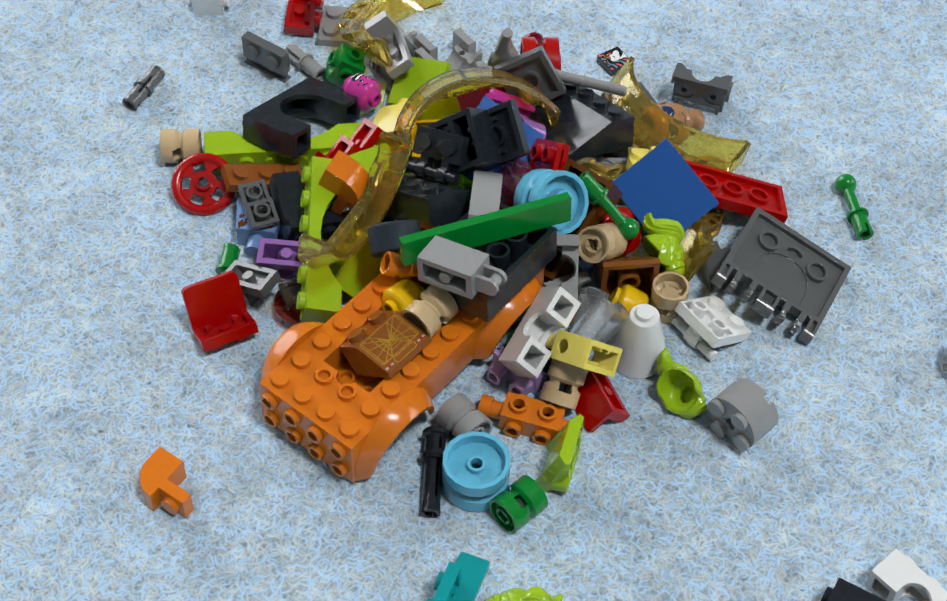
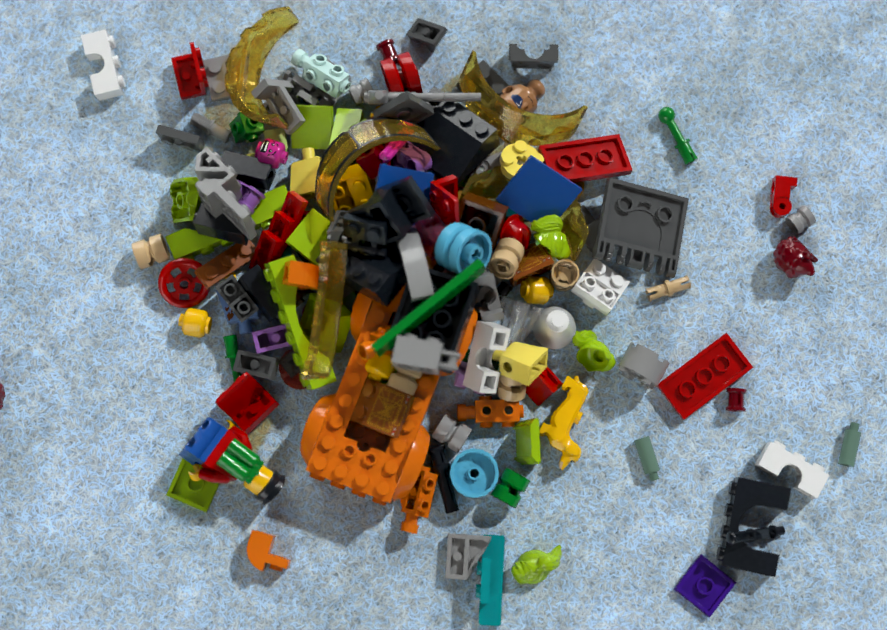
camera: 15 degrees left, 30 degrees up
(114, 389) = (193, 493): none -> lime tile
(146, 83) = (96, 184): dark grey pin -> none
(166, 352) = (228, 457): none -> piece
(197, 226) = (195, 322): none -> yellow head
(247, 98) = (185, 199): none -> lime slope
(288, 87) = (221, 191): none -> light grey piece
(316, 115) = (251, 196): none -> medium lavender piece
(386, 235) = (360, 324): black wheel -> none
(391, 480) = (419, 500): none -> orange brick
(423, 562) = (463, 554): none -> light grey wing
(451, 39) = (322, 73): none -> light aqua brick
(587, 43) = (427, 33): none -> dark grey slope
(597, 194) = (496, 229): green pin -> none
(612, 60) = (455, 42): tile -> none
(616, 450) = (563, 420): none -> yellow animal
(717, 527) = (647, 457): none -> sand green cylinder
(799, 352) = (668, 288): none -> tan pin
(822, 458) = (704, 376): none -> red plate
(858, 495) = (736, 399): none -> dark red bush

